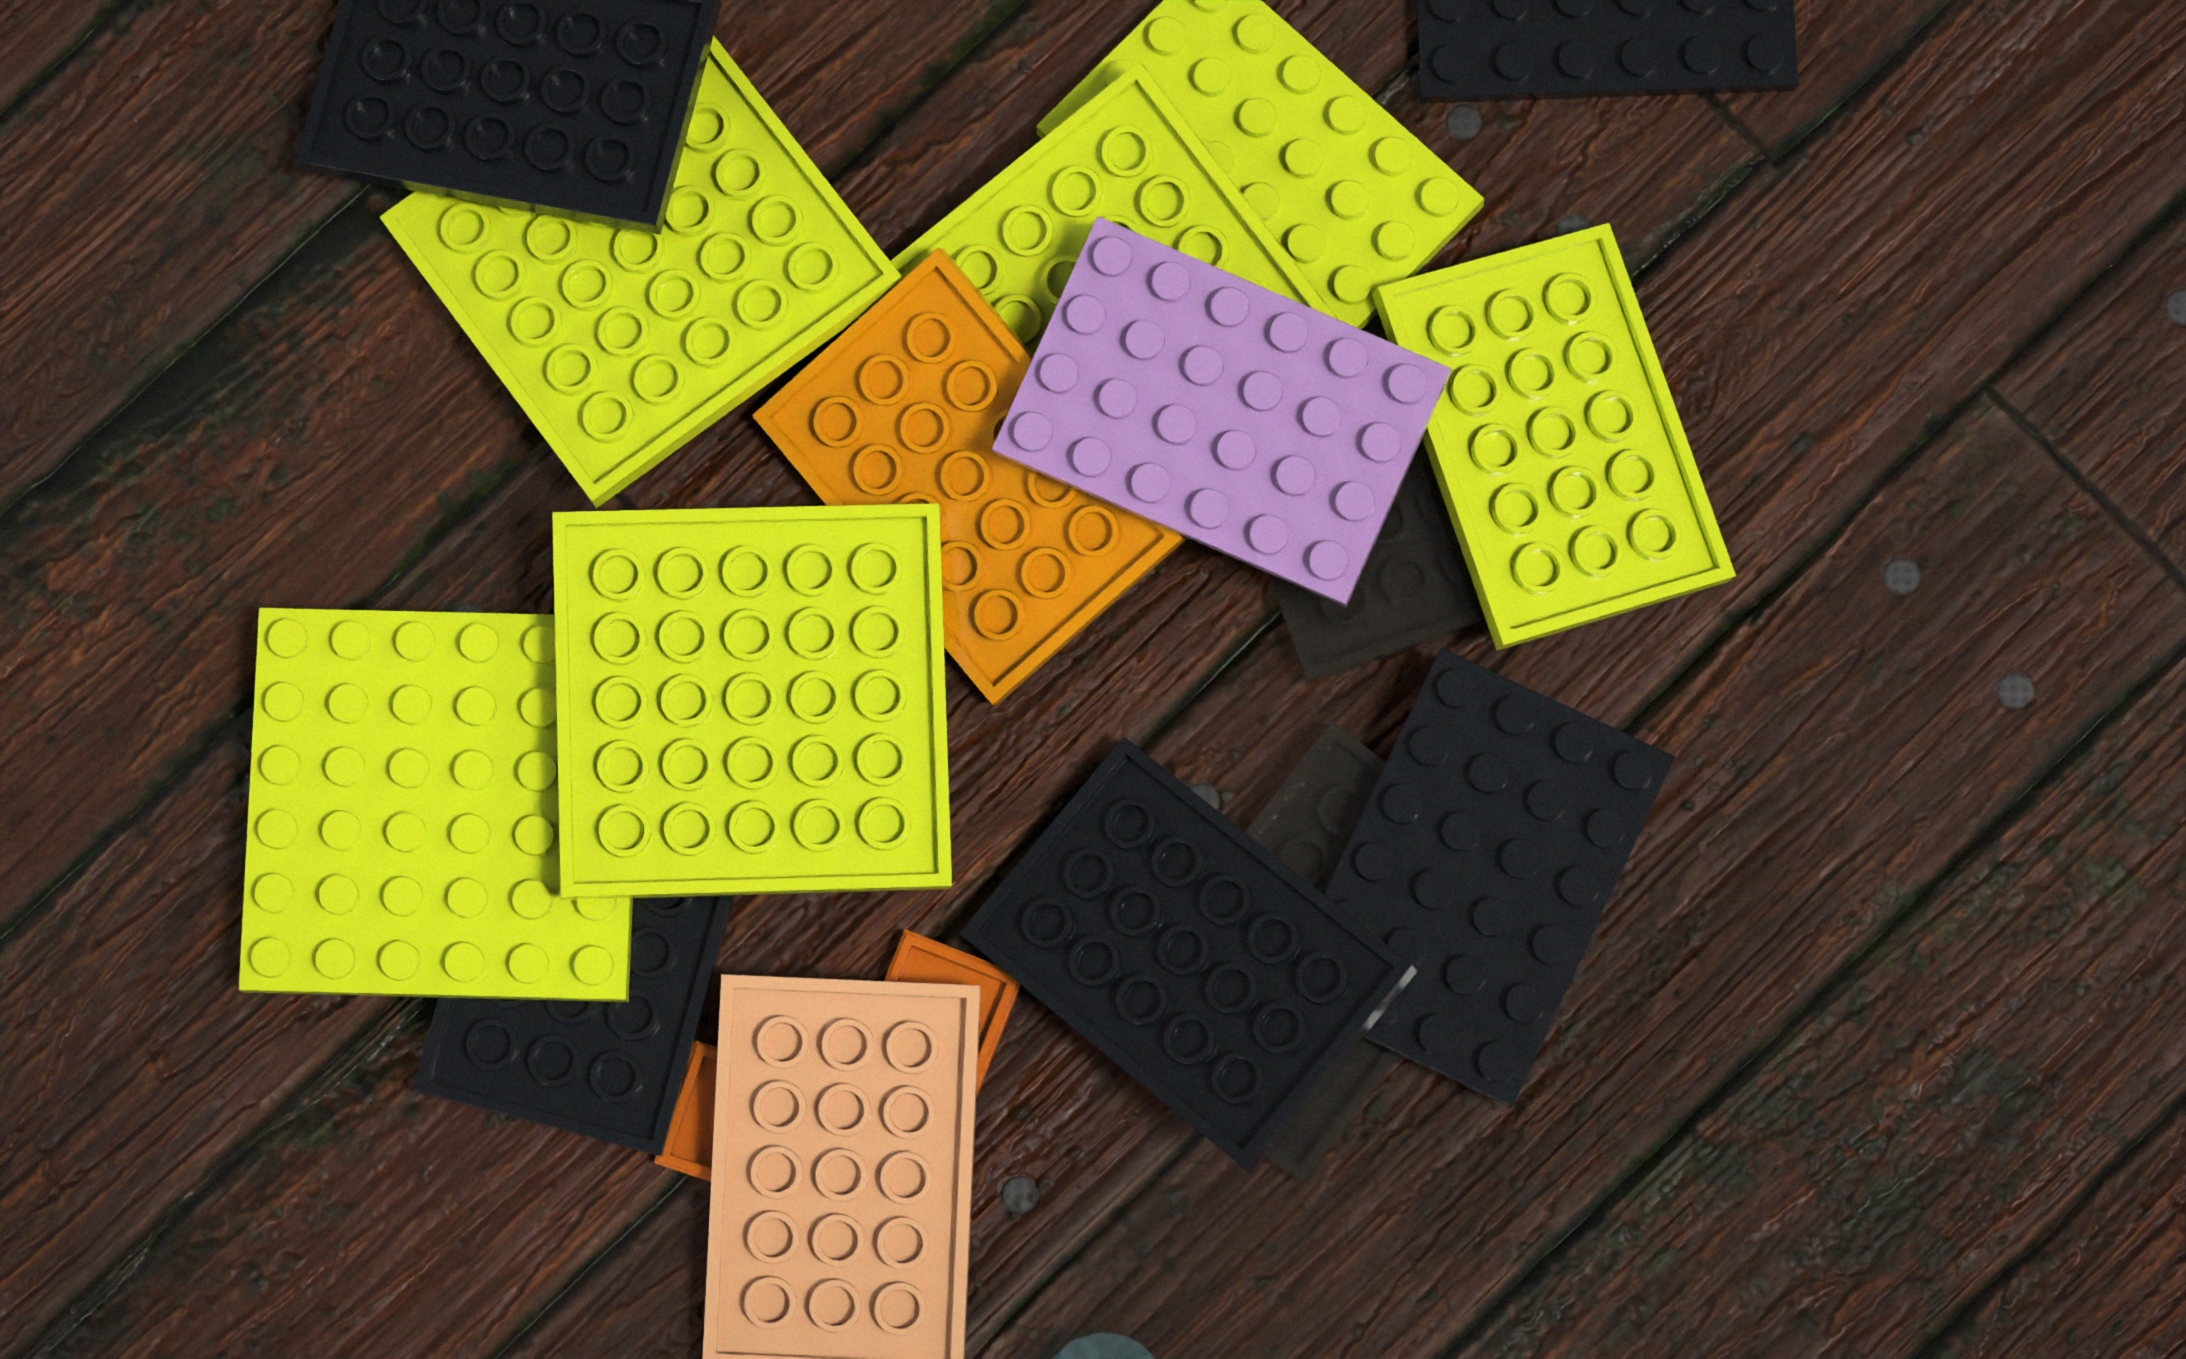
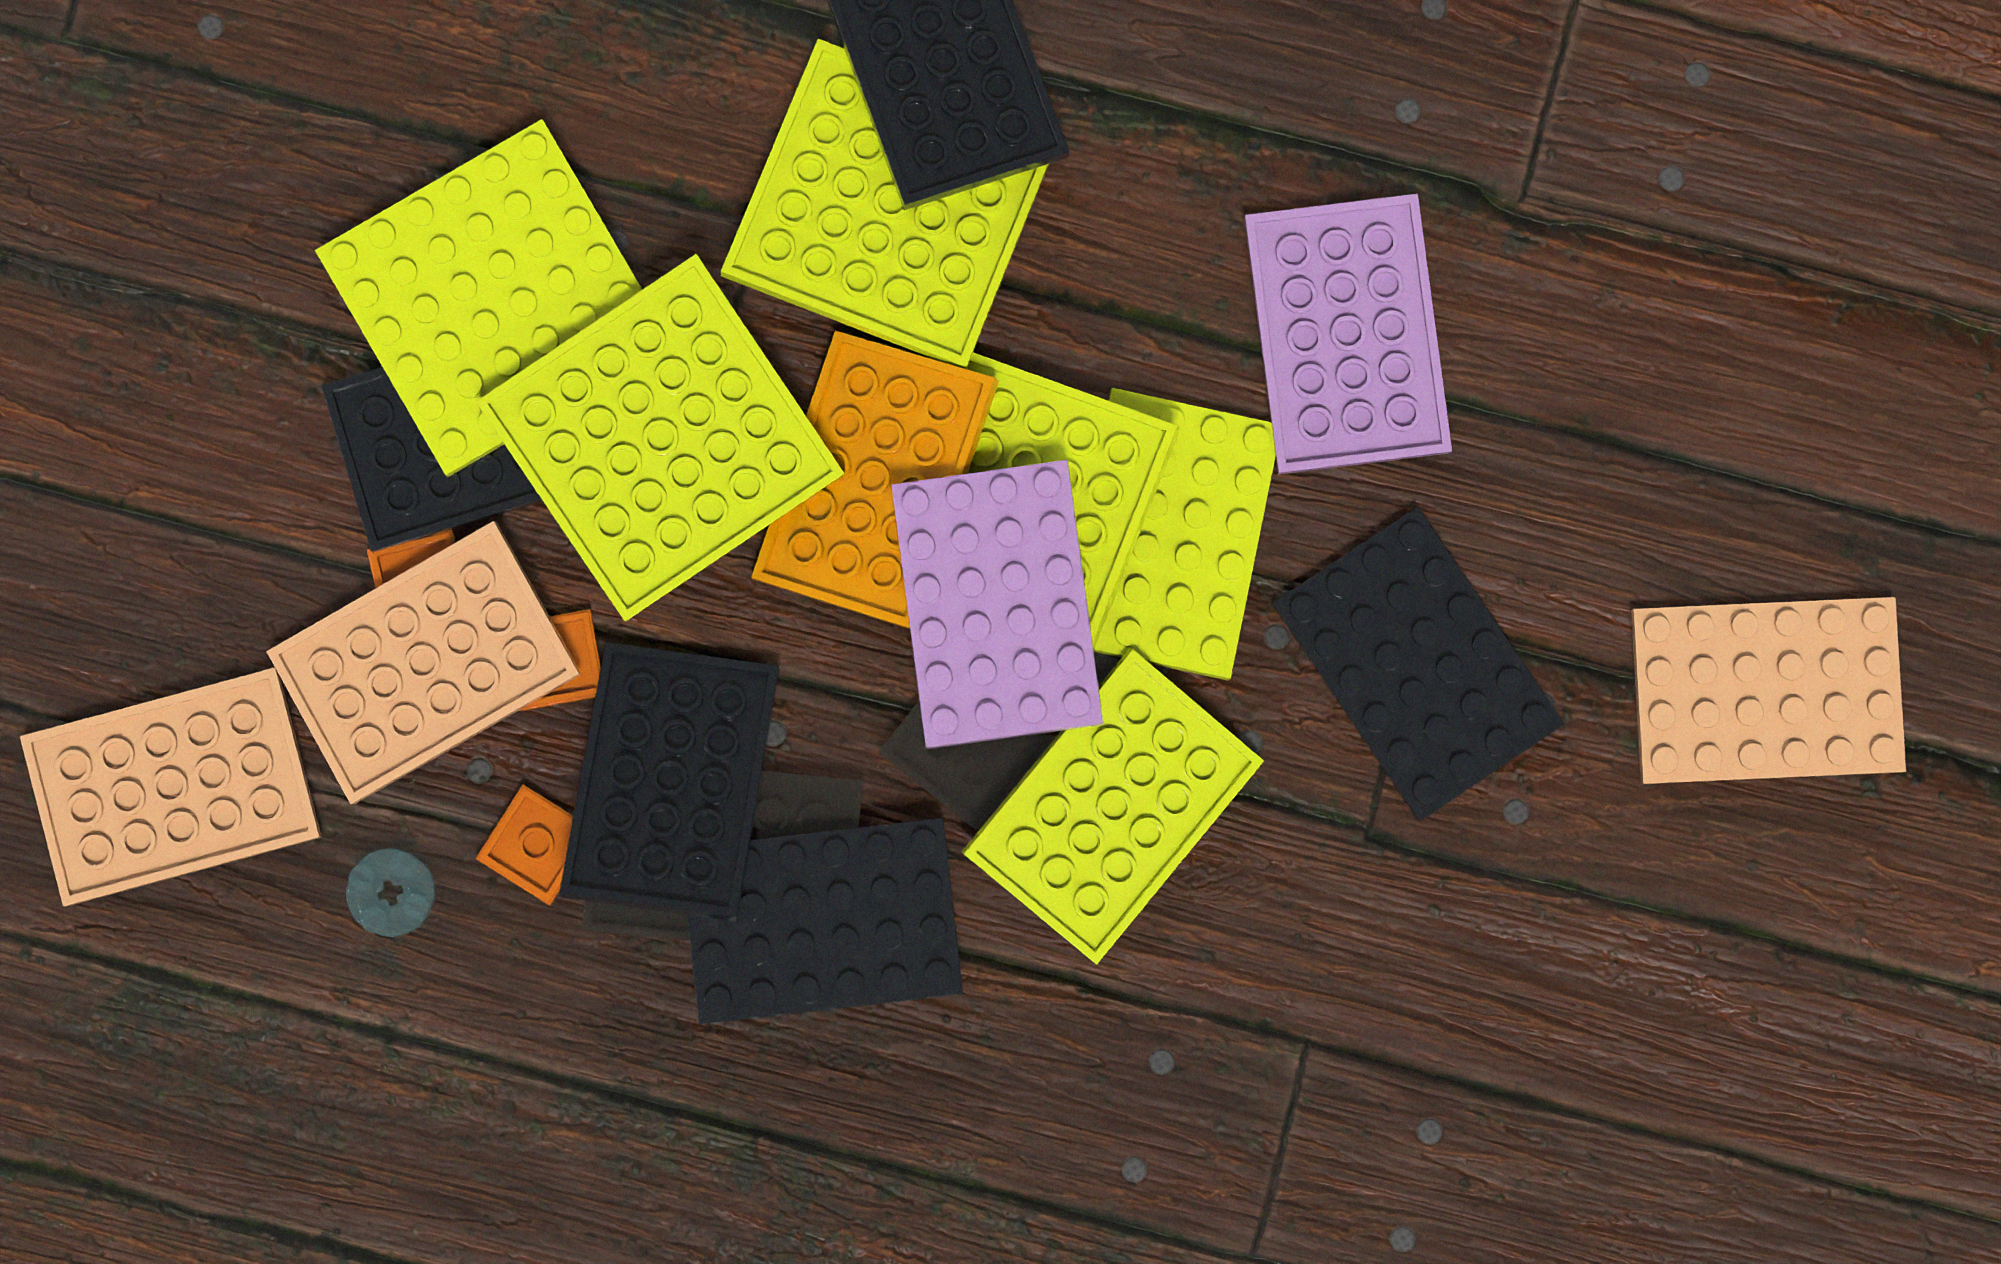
camera: 50 degrees right, 5 degrees up
(1156, 1181) = (530, 844): none -> orange tile

